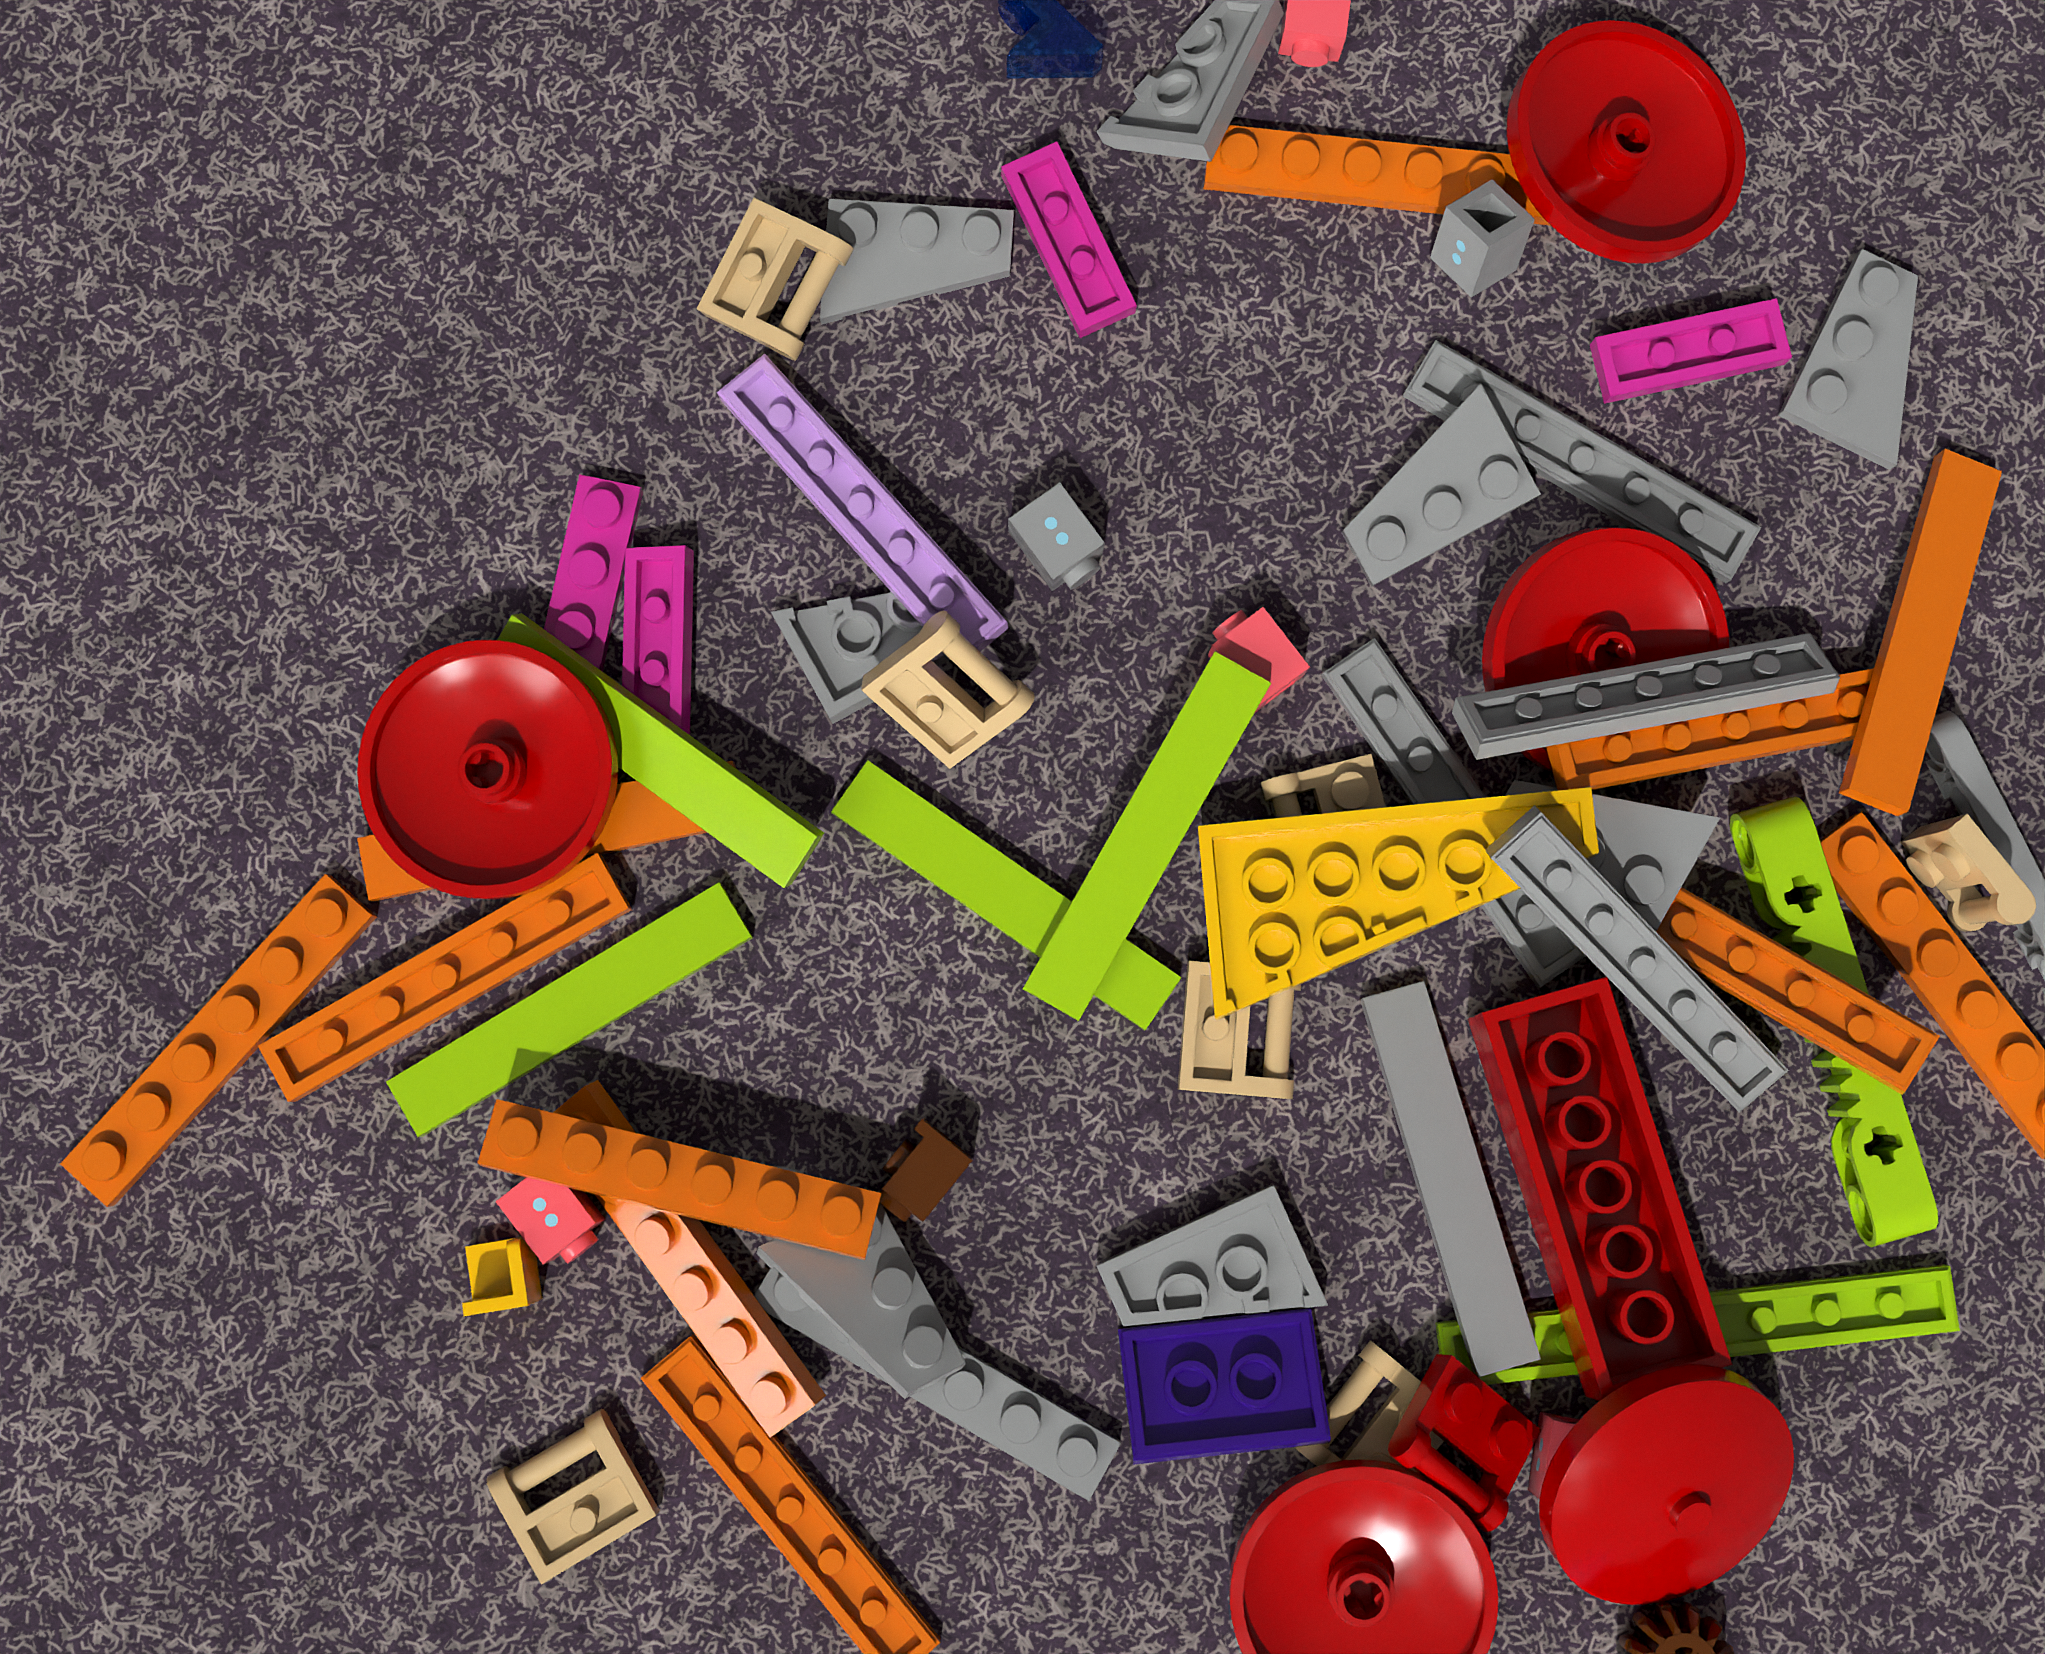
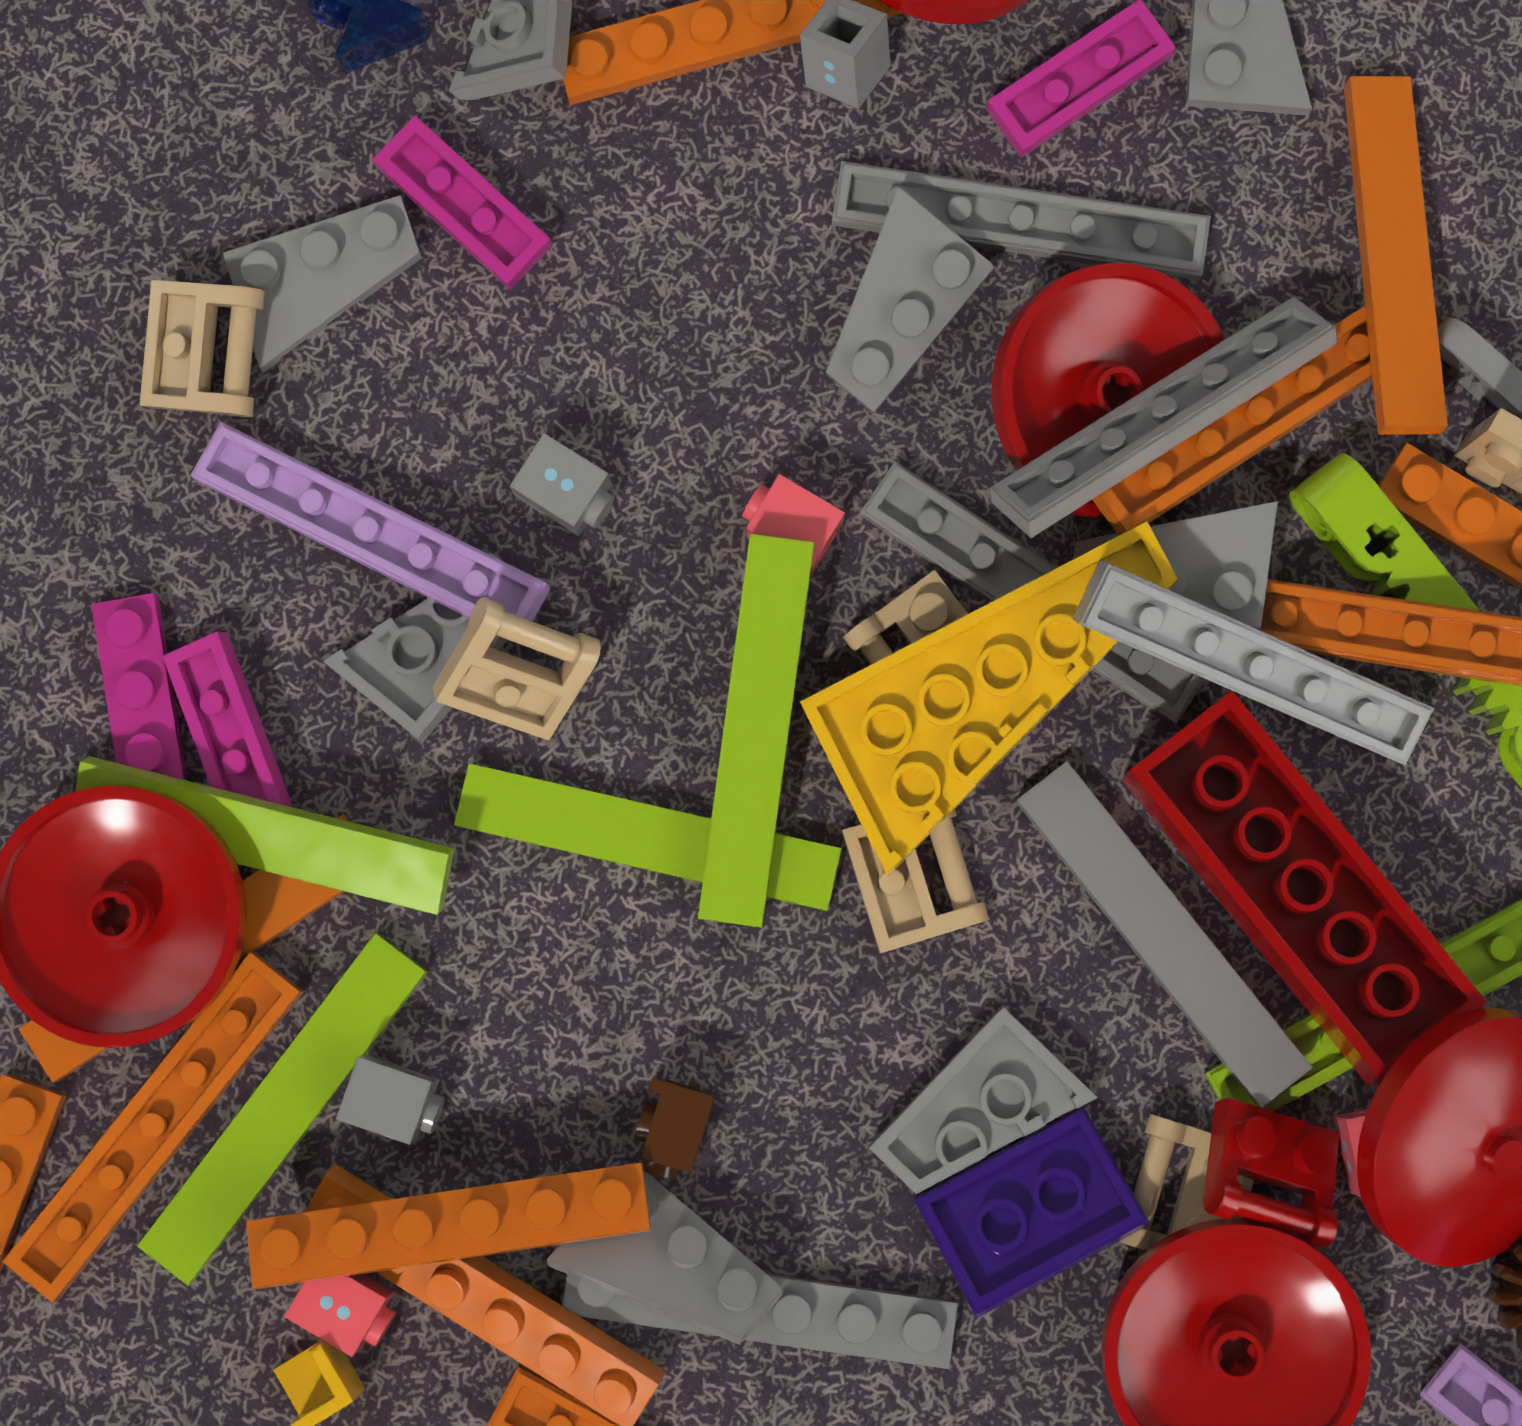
camera: 15 degrees left, 0 degrees up
(672, 1042) = (391, 1100): none -> light grey brick

